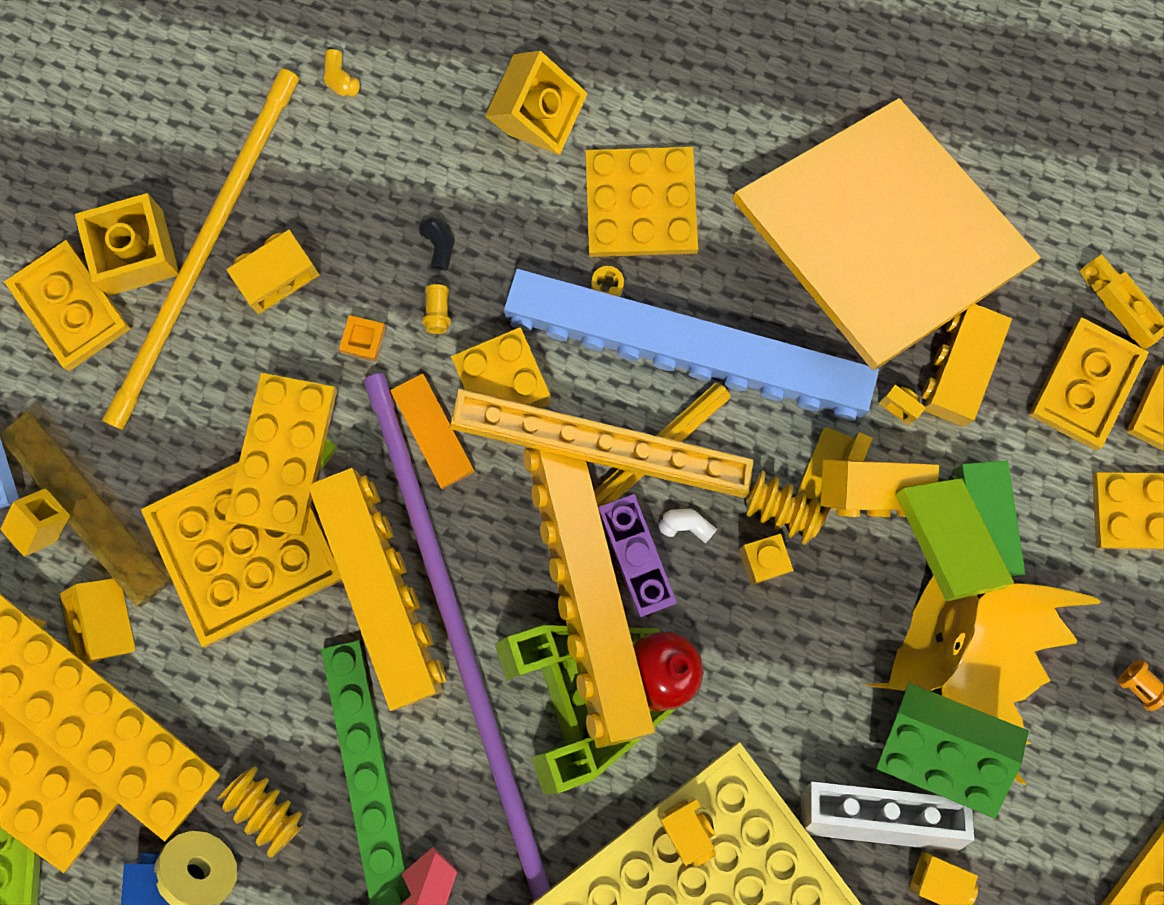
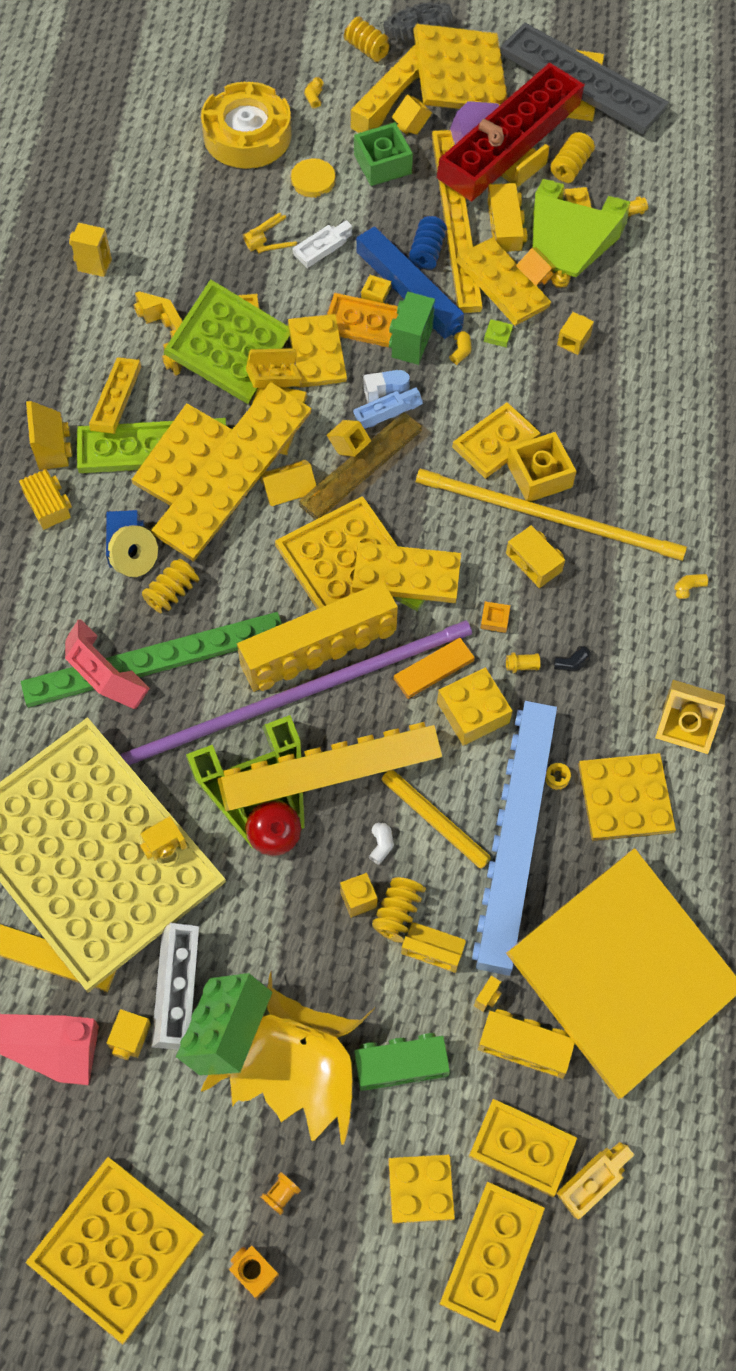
camera: 85 degrees right, 15 degrees down
(601, 443) = (432, 774): yellow tile -> none
(636, 555) = (354, 803): medium lavender slope -> none
(870, 485) = (418, 969): yellow brick -> none
(954, 539) = (381, 1019): lime tile -> none

